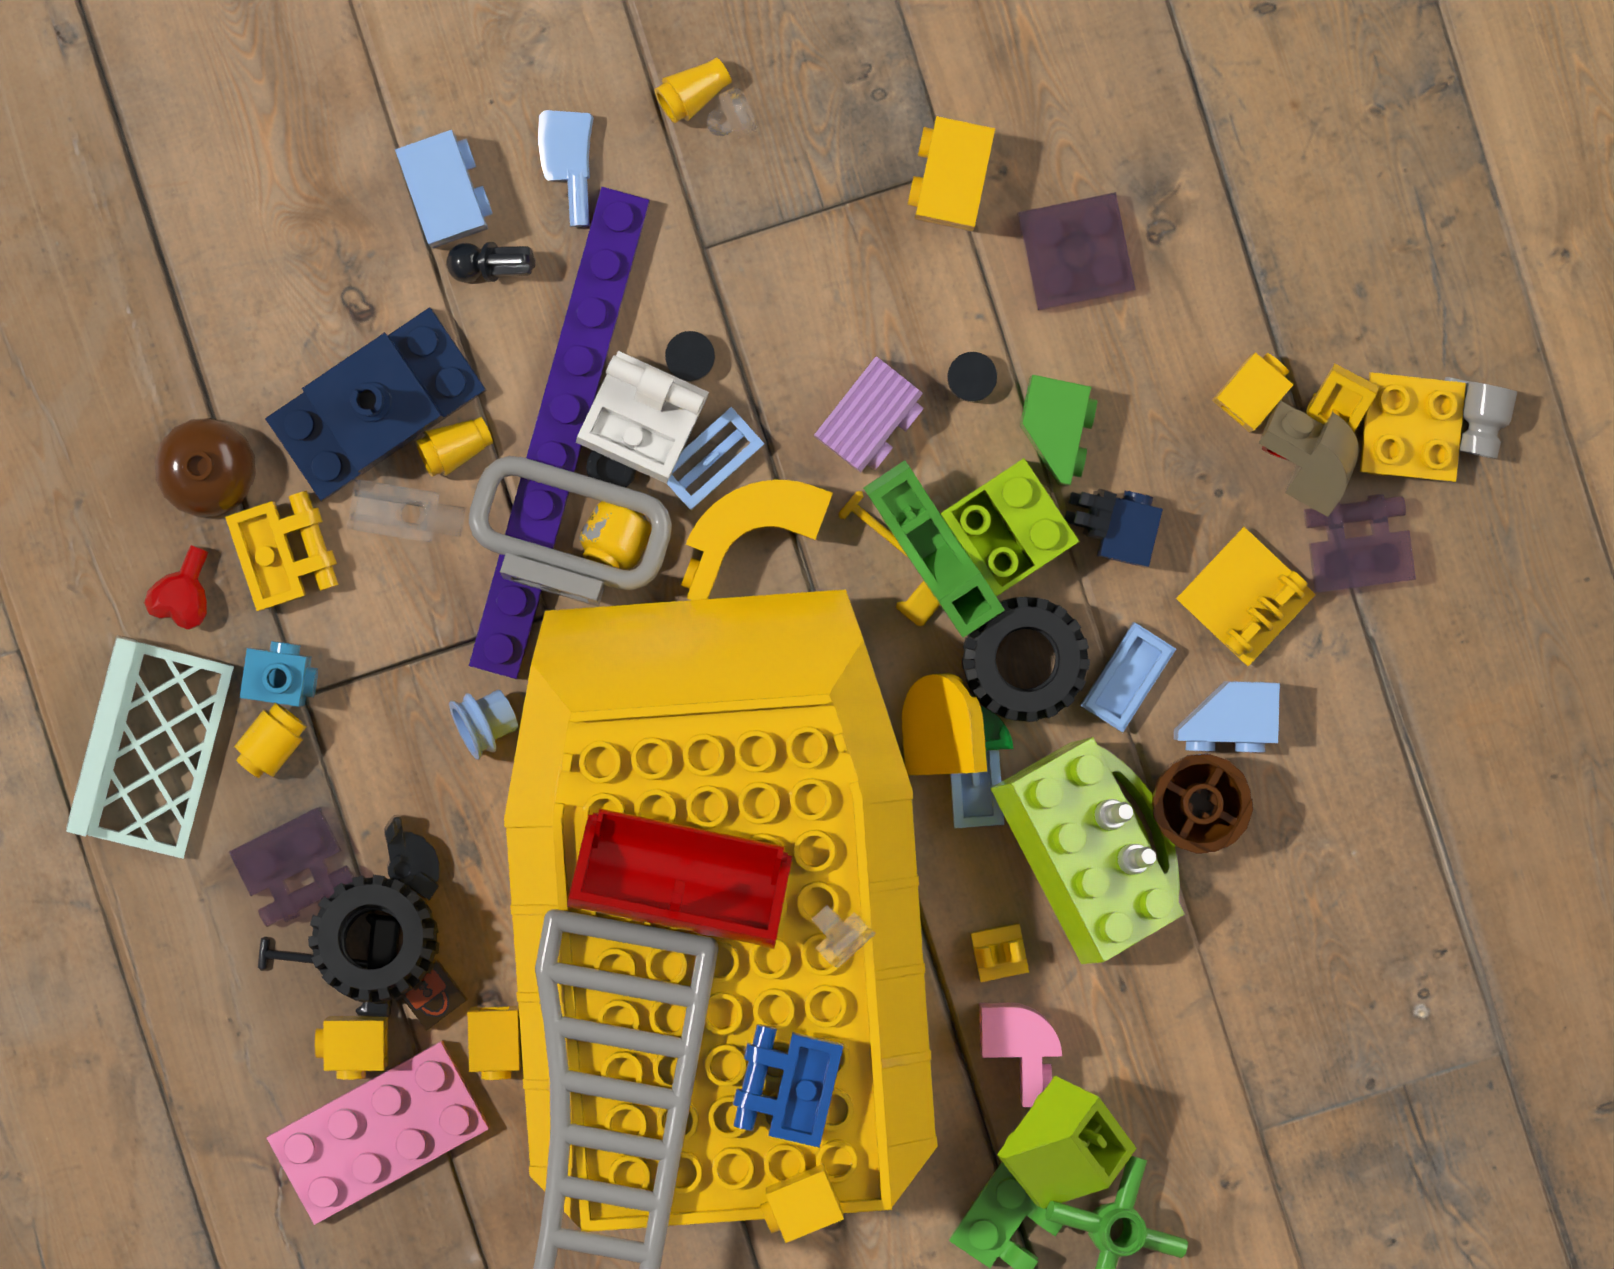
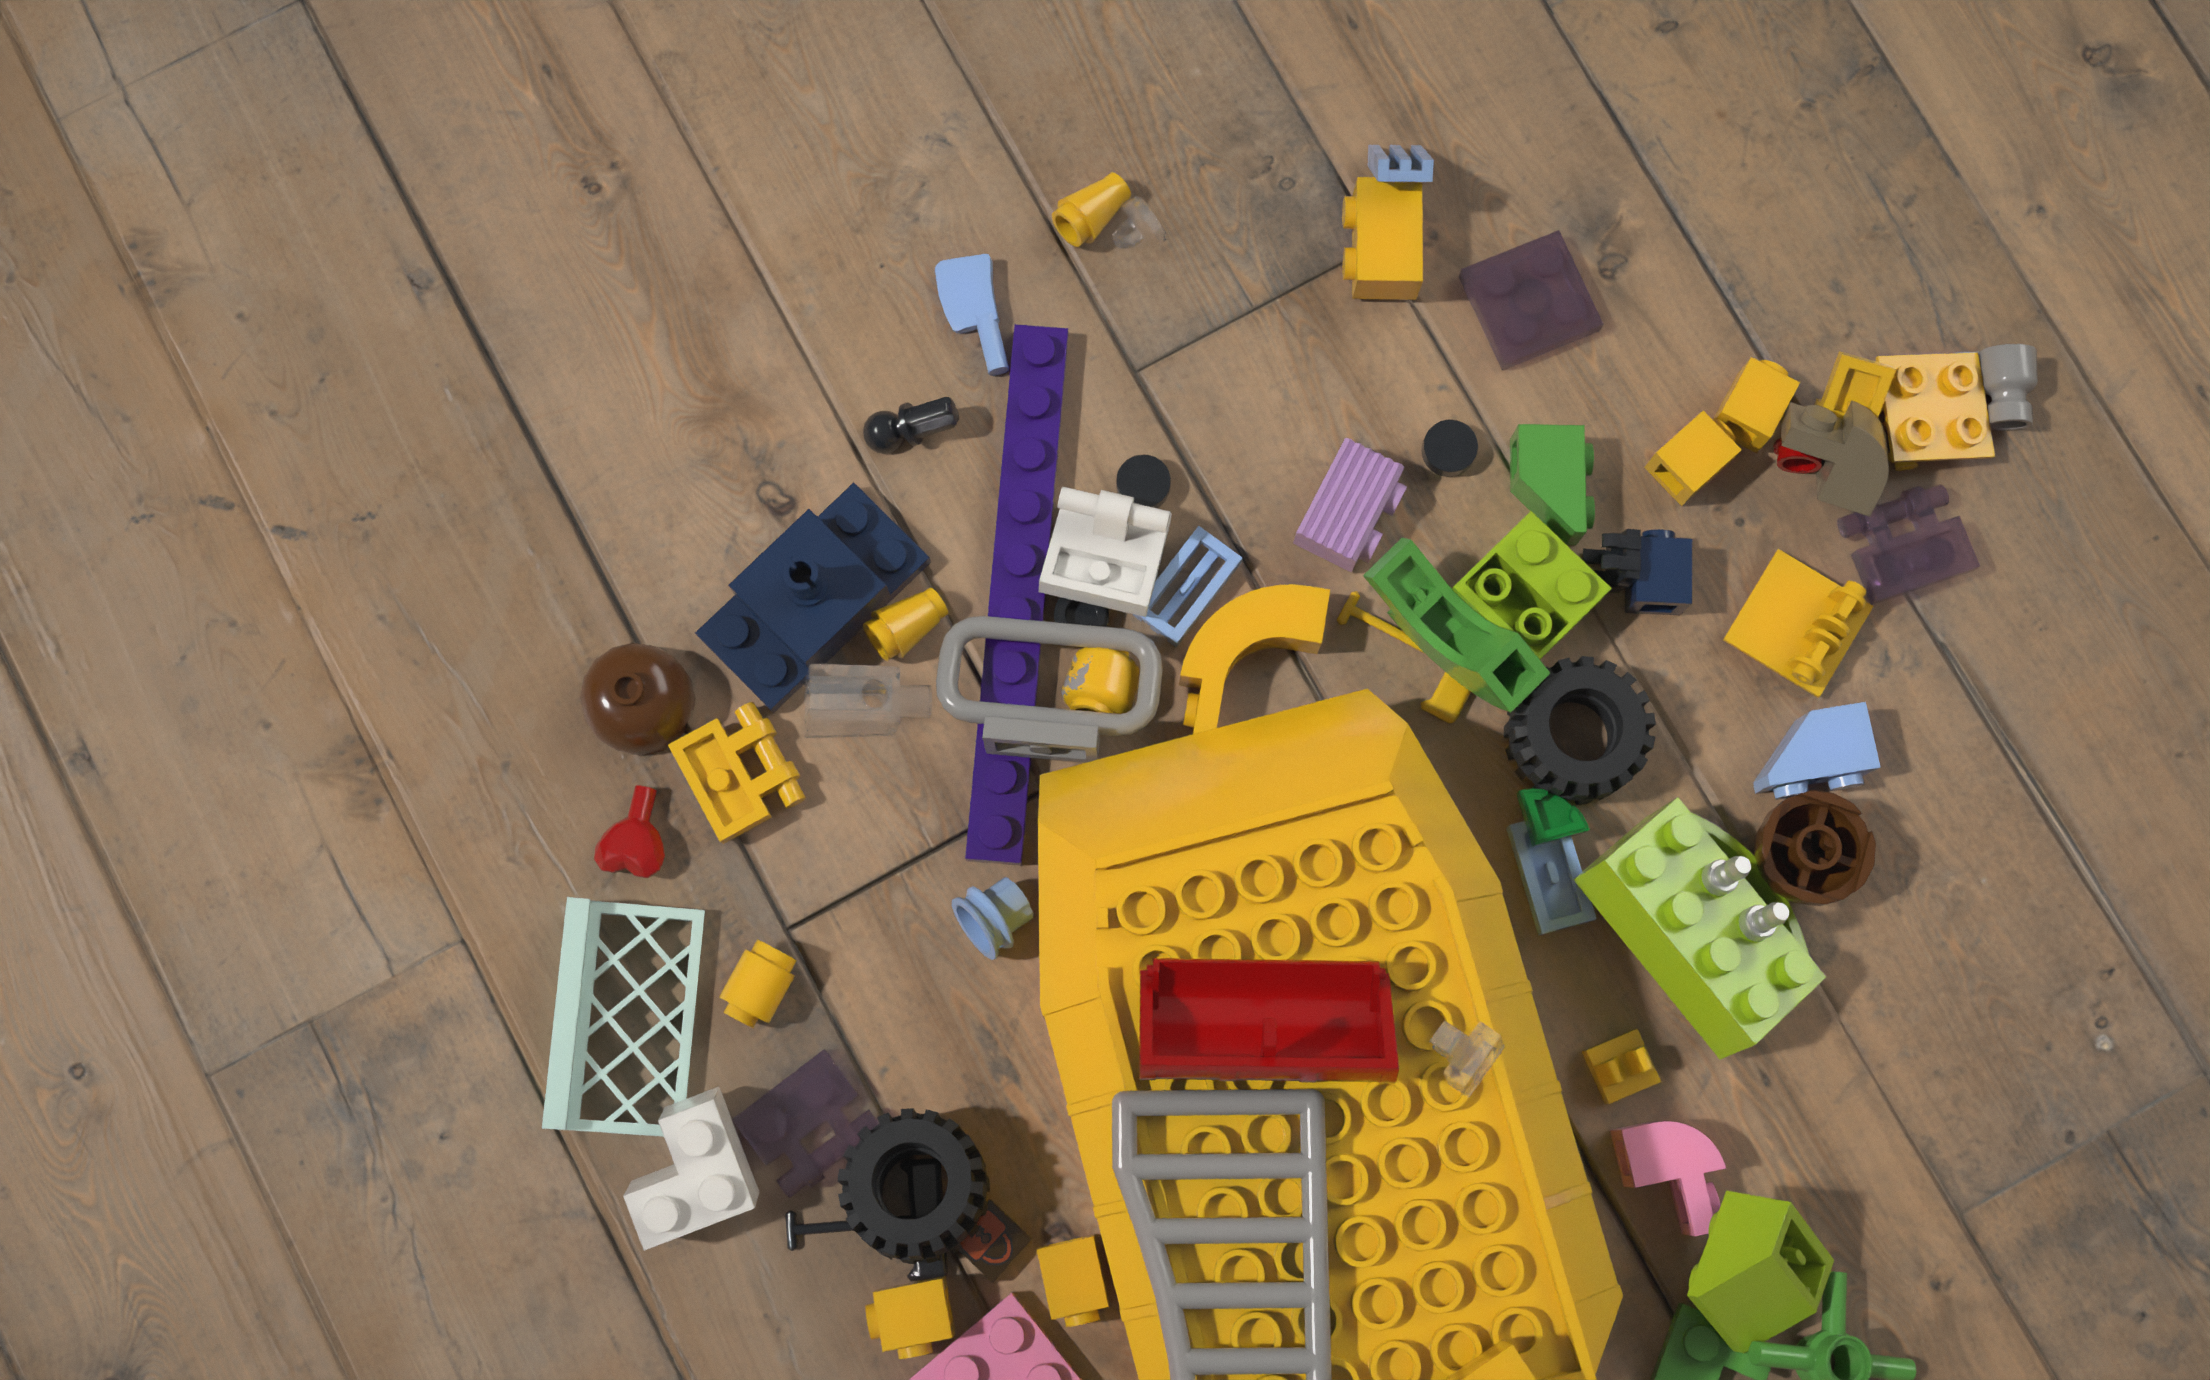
camera: 10 degrees left, 10 degrees down
(198, 900) = (707, 1177): none -> white brick
(278, 675) = (755, 908): dark azure brick -> none
(411, 859) = (940, 1087): black piece -> none
(443, 188) = (846, 356): light blue brick -> none
(804, 1089) = (1463, 1250): blue plate -> none
(942, 728) = (1511, 818): yellow tile -> none
(982, 95) = (1412, 168): none -> light blue tile
(1128, 677) = (1691, 734): light blue tile -> none
(1187, 429) = (1693, 457): none -> yellow brick

